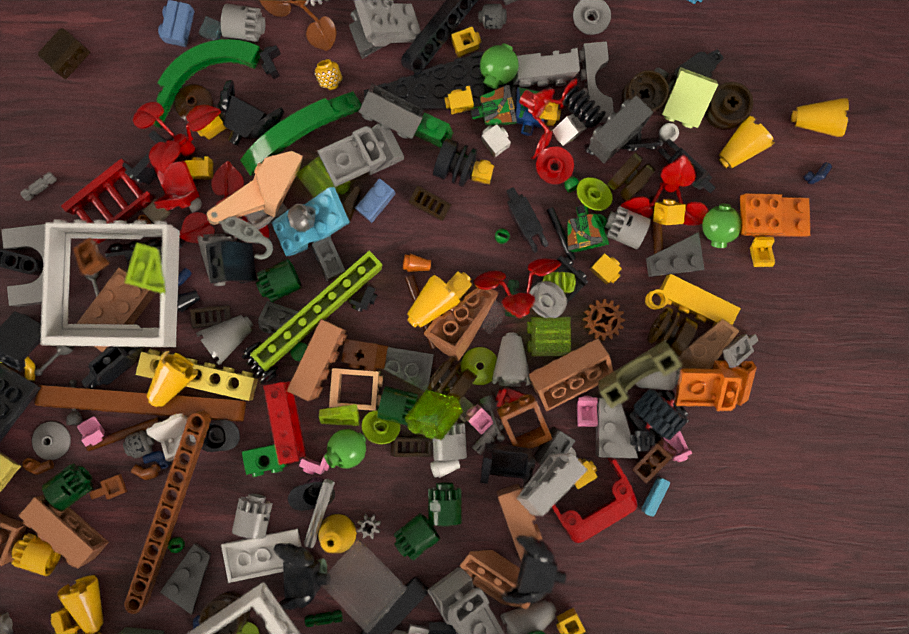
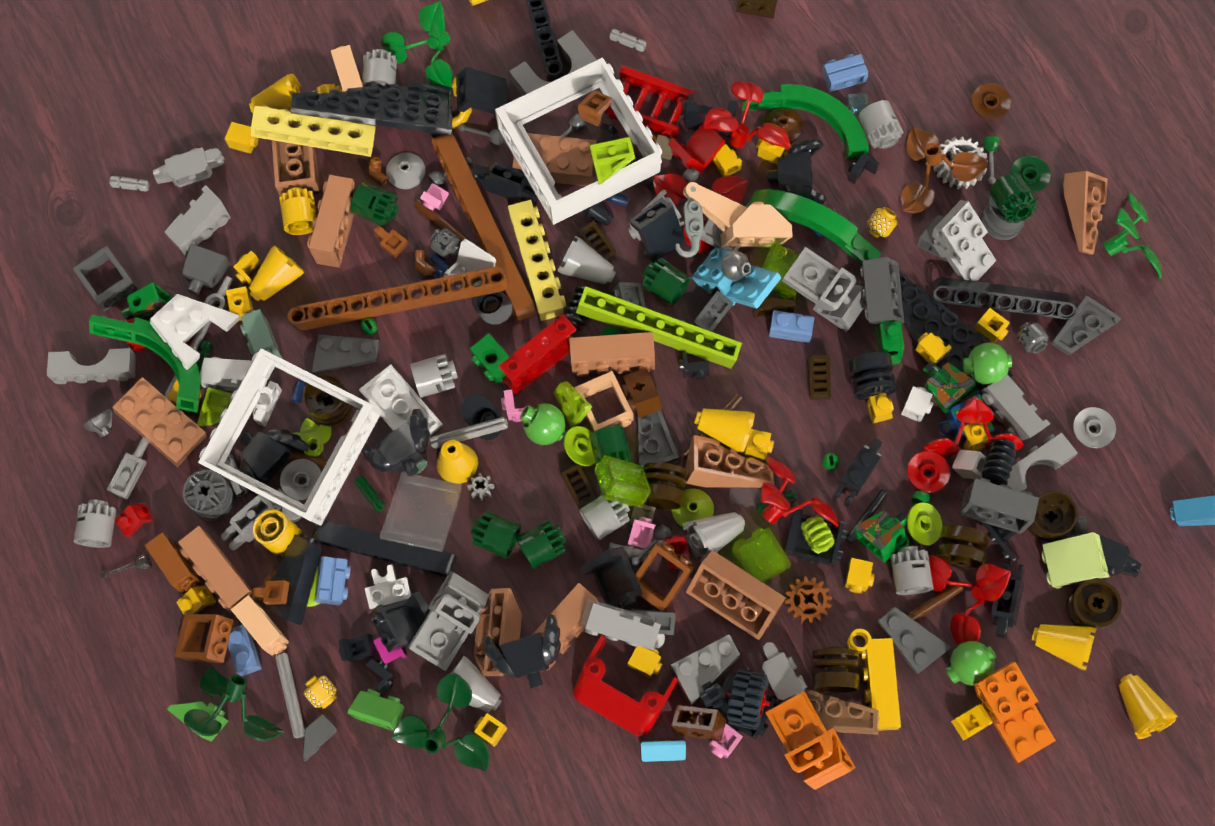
camera: 60 degrees right, 15 degrees down
(170, 378) = (522, 234): yellow cone -> none
(415, 263) = (755, 395): orange cone -> none
(442, 468) = (577, 526): white cone -> none
(549, 299) = (794, 530): light grey tile -> none
(587, 411) = (708, 632): bright pink bracket -> none
(657, 359) = (794, 658): olive arch -> none
(668, 131) = (1031, 564): white tile -> none
(669, 212) = (951, 602): yellow brick -> none
(739, 349) = (859, 746): light grey hinge -> none
(820, 175) = (1087, 740): dark blue arm -> none

